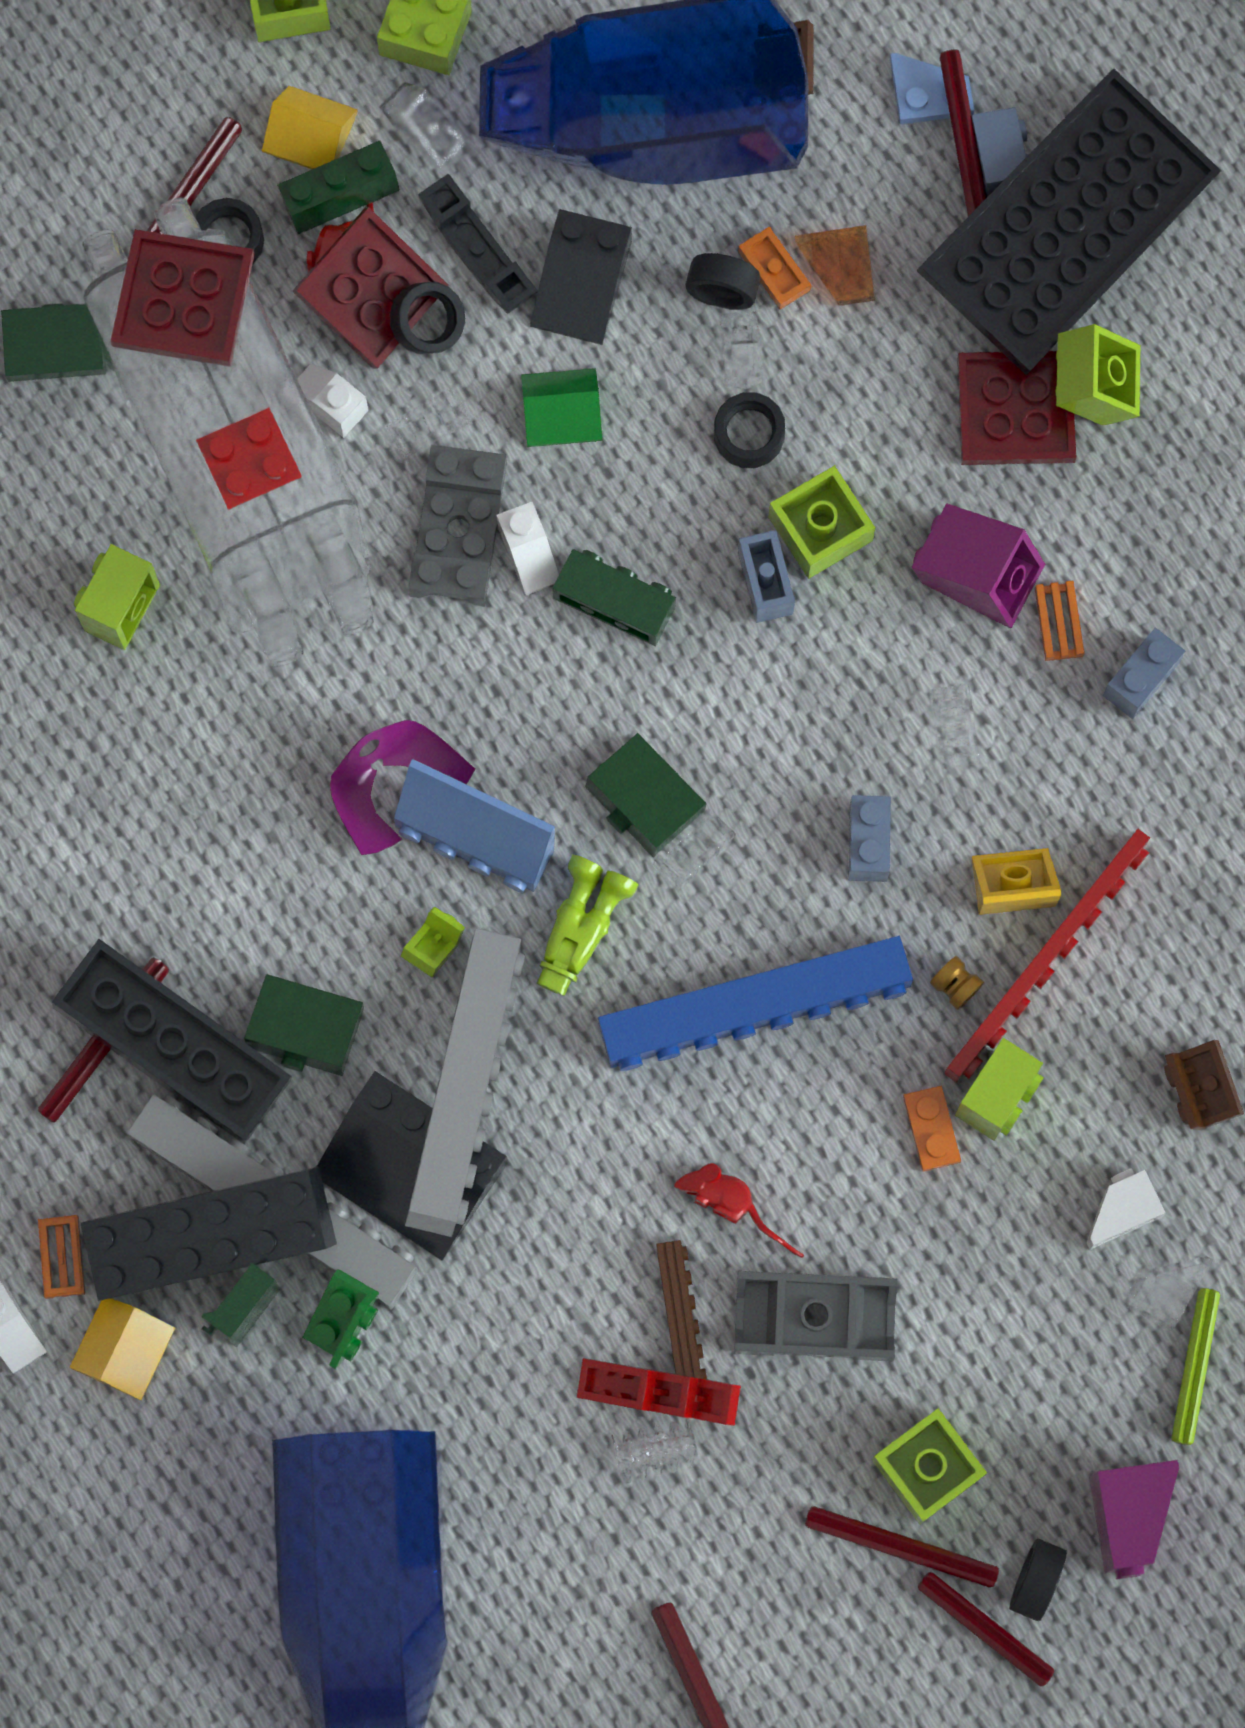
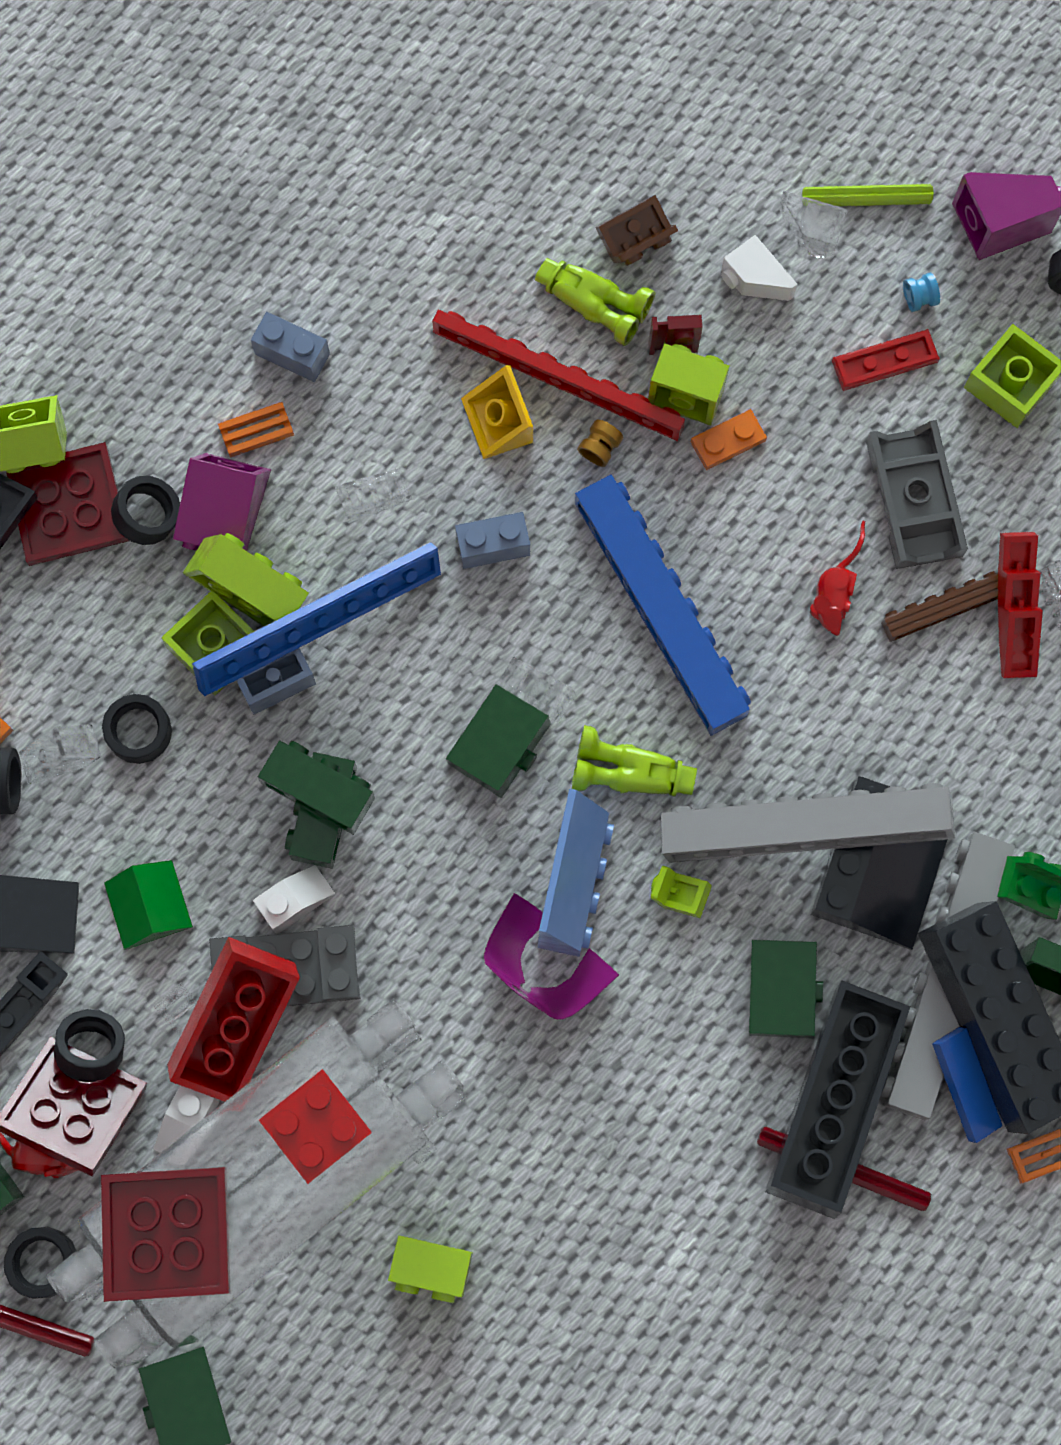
camera: 105 degrees left, 0 degrees up
(151, 1183) = (967, 1084): none -> blue tile
(410, 454) = (232, 1020): none -> red brick
(633, 587) = (317, 785): none -> dark green brick
(815, 628) = (316, 619): none -> blue tile
(874, 562) = (245, 579): none -> lime brick
(976, 456) = (158, 490): none -> black tyre
(988, 1332) = (885, 359): none -> red tile
(1058, 1095) = (680, 330): none -> dark red plate
(1059, 1392) = (921, 292): none -> dark azure wheel
(1138, 1014) = (590, 292): none -> lime piece

